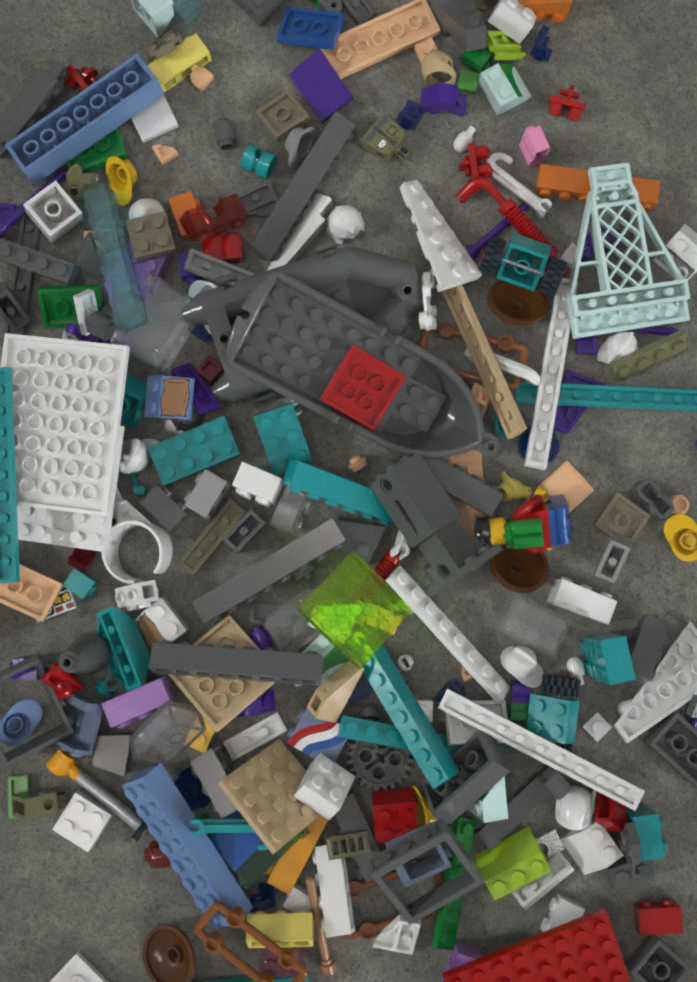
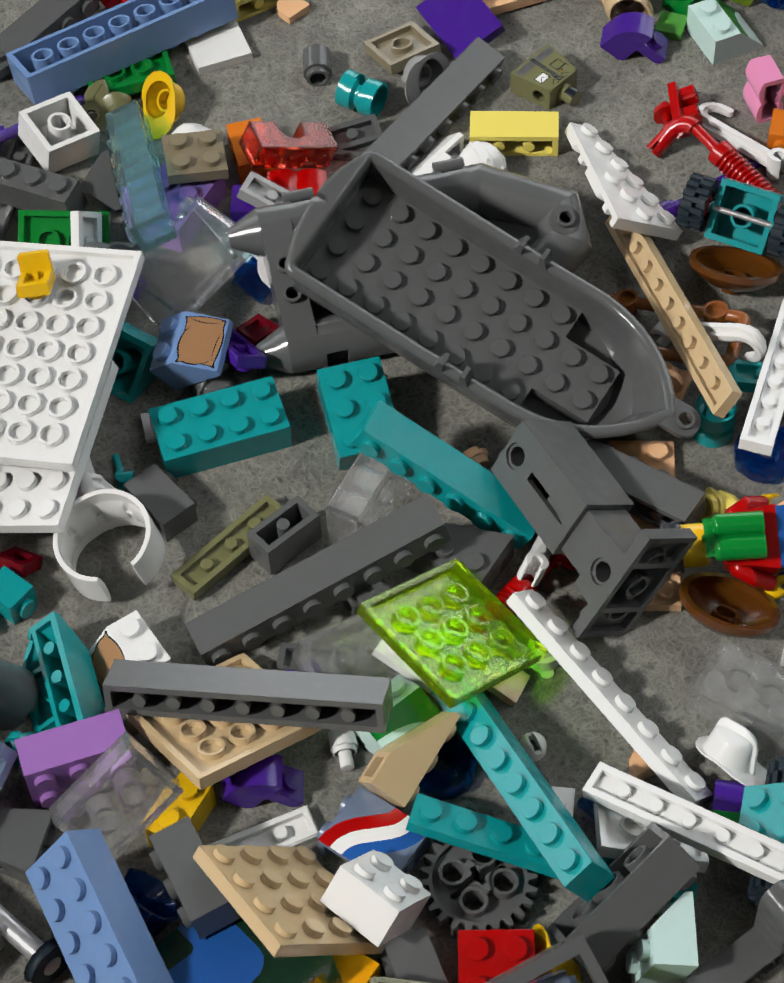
camera: 10 degrees right, 30 degrees down
(58, 373) = (36, 274): none -> yellow bracket
(133, 456) = (123, 429): white hair -> none
(136, 595) = (98, 605): white brick -> none
(164, 153) = (227, 85): light nougat tile -> none
(207, 494) = (232, 478): light grey brick -> none
(234, 825) = (153, 922): teal piece -> none
(258, 484) = (311, 458): white brick -> none
(362, 387) = (489, 331): red plate -> none
(365, 189) = (517, 131): none -> light yellow brick
(410, 115) = (586, 57): clear blue bracket -> none
(428, 318) = (598, 246): white plant -> none
(463, 139) = (657, 89): white cylinder -> none

